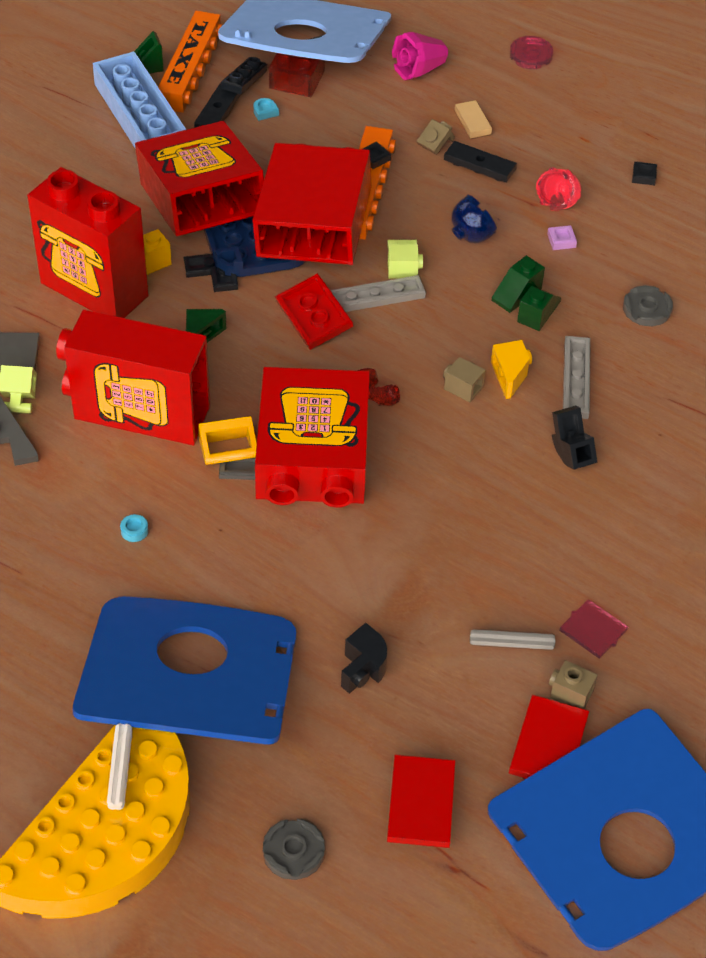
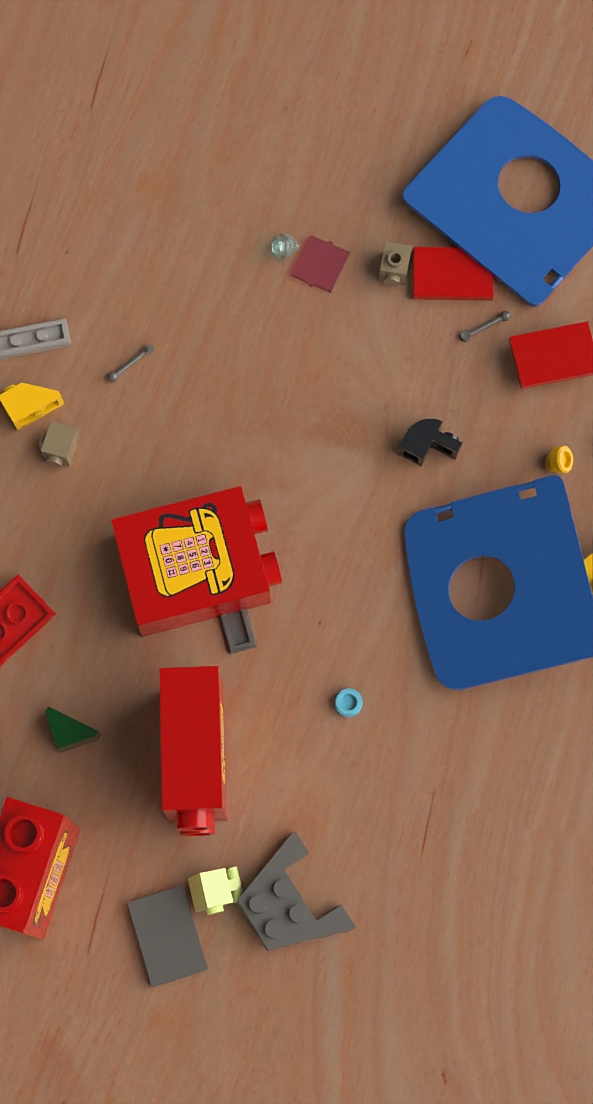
camera: 105 degrees left, 25 degrees up
(227, 430) = (203, 652): yellow tile -> none
(302, 772) = (559, 460): none -> yellow tile
(384, 396) = (94, 538): clear red arm -> none
(474, 735) = (466, 335): none -> dark grey hinge
(512, 639) = (360, 326): light grey axle -> none
(520, 436) = (113, 376): none -> dark grey hinge
(570, 441) = (116, 321): black brick -> none
(619, 597) = (284, 246): none -> clear light blue plate

